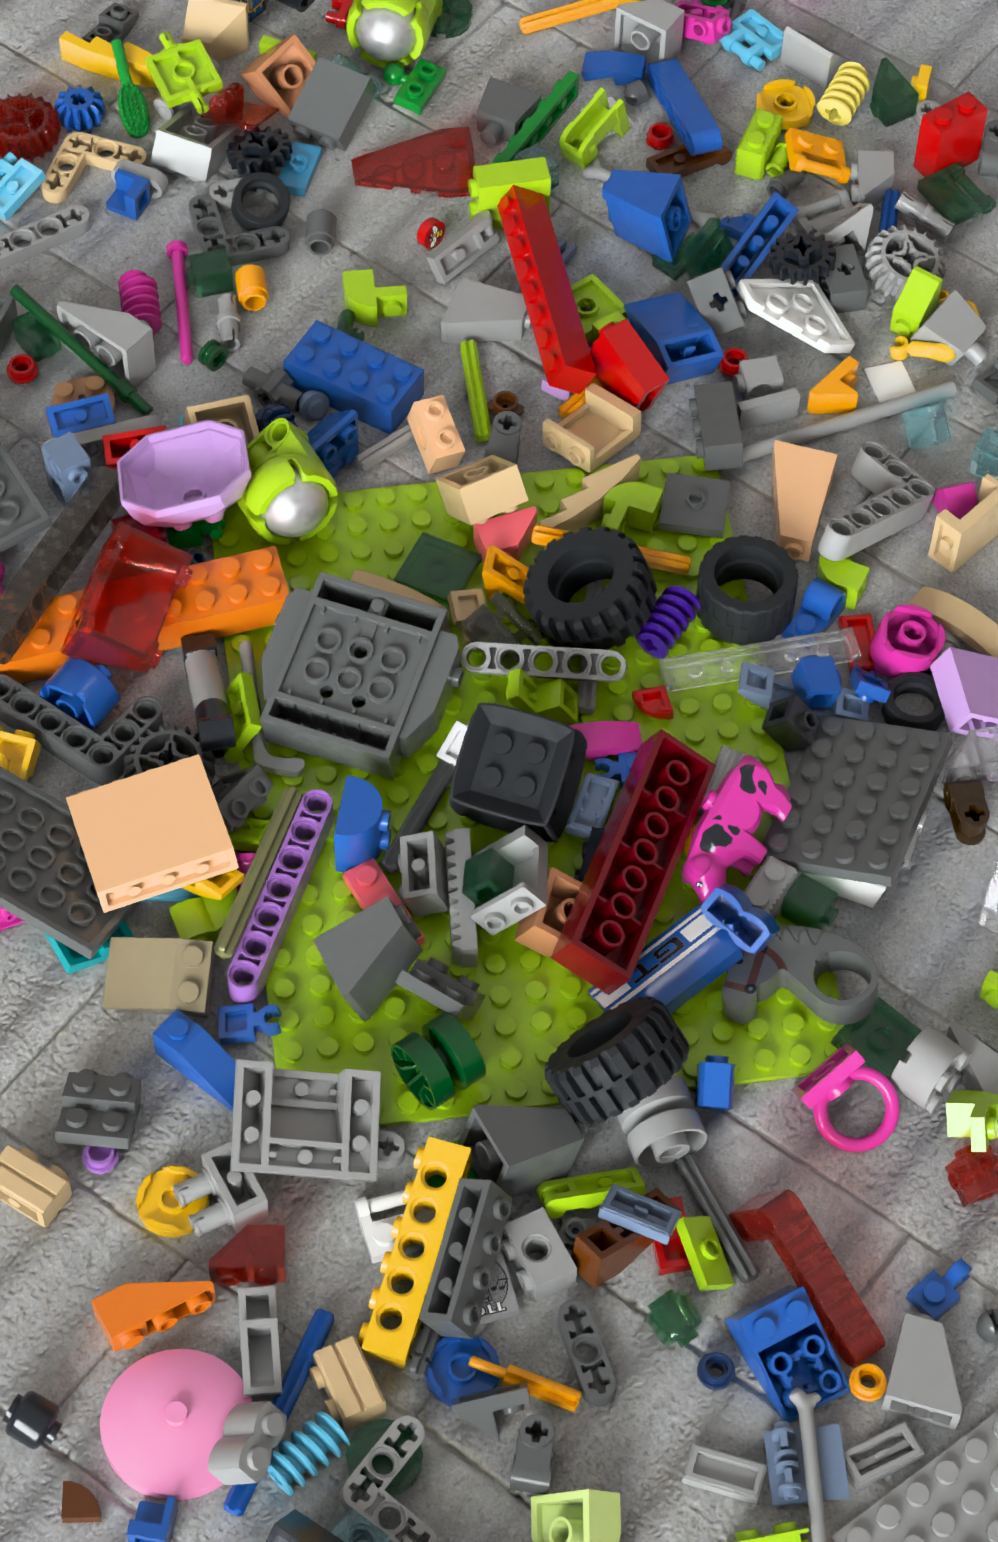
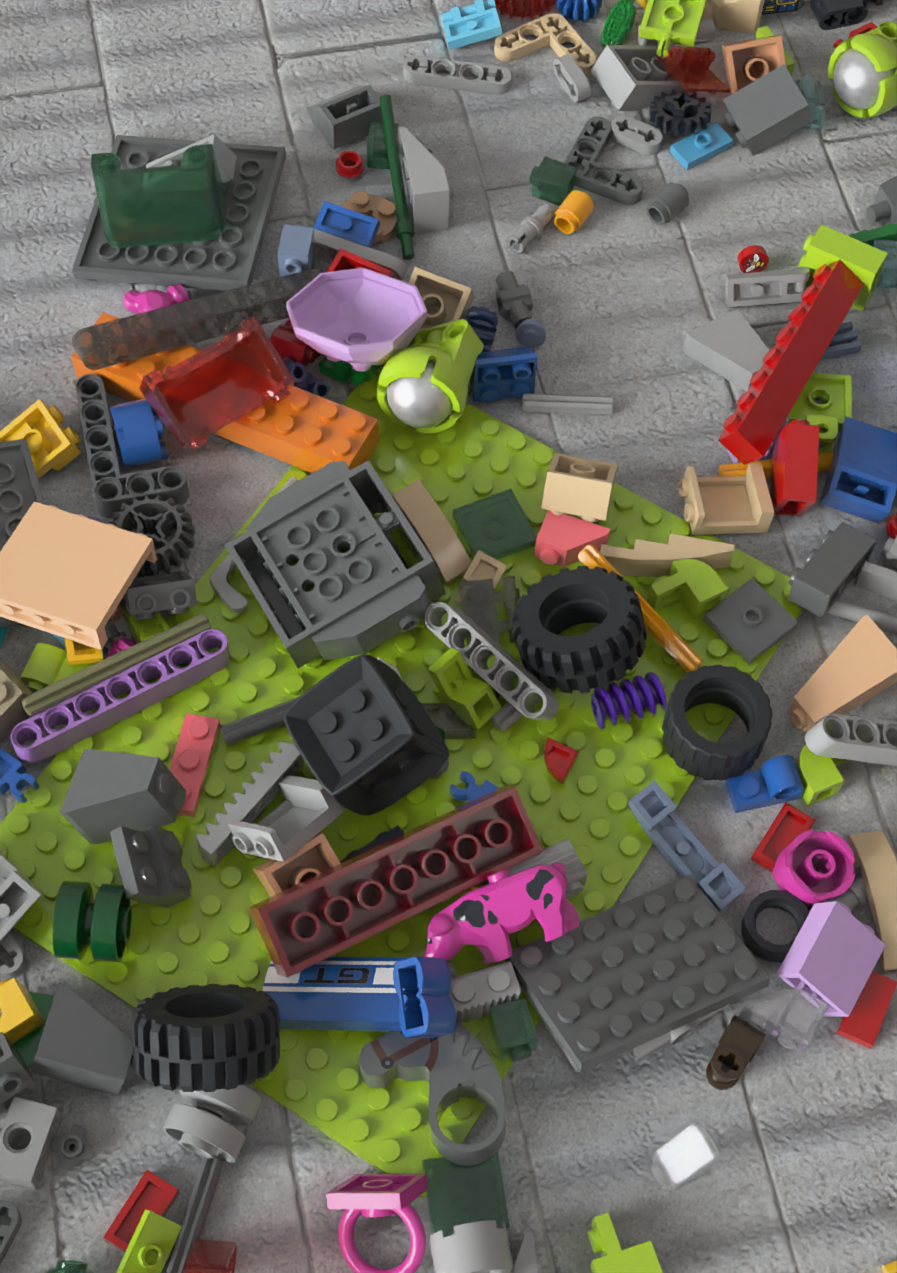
camera: 40 degrees right, 5 degrees up
(130, 196) = (554, 88): blue panel -> none
(140, 298) = (477, 170): dark pink piece -> none
(177, 251) = (545, 148): dark pink bar -> none
(208, 694) = (252, 471): piece -> none
(213, 355) = (494, 245): dark green bush -> none
(245, 714) = (236, 525): lime plate -> none
(260, 181) = (641, 130): black tyre -> none
(346, 324) = (613, 293): clear green arm -> none
(355, 376) = (581, 332): blue brick -> none
(360, 826) = (221, 684): blue brick -> none
(371, 301) = (652, 279): lime brick -> none
(417, 86) = (856, 139): green plate -> none
(423, 874) = (234, 760): light grey brick -> none
(430, 162) = (798, 199): clear red wedge -> none
(435, 434) = (595, 418): light nougat brick -> none
(475, 390) = (668, 407): lime axle -> none
(487, 876) = (271, 802): clear green brick -> none
(503, 574) = (531, 562): light orange slope -> none
(505, 402) = (681, 428): reddish brown plate -> none
(505, 436) = (646, 463): dark grey piece -> none
(586, 1190) = (114, 1125): lime plate -> none
(592, 805) = (423, 805): sand blue plate -> none
(609, 737) = (485, 758): dark pink slope -> none
(609, 1248) = (97, 1185): reddish brown slope -> none
(639, 1218) = (128, 1210): sand blue tile -> none
(715, 1083) = (282, 1121): brick -> none
(781, 654) = (684, 789): clear tile -> none
(791, 723) = (650, 862): pearl dark grey brick -> none
(817, 681) = (705, 843): blue brick -> none
(867, 686) = (746, 879): blue plate -> none

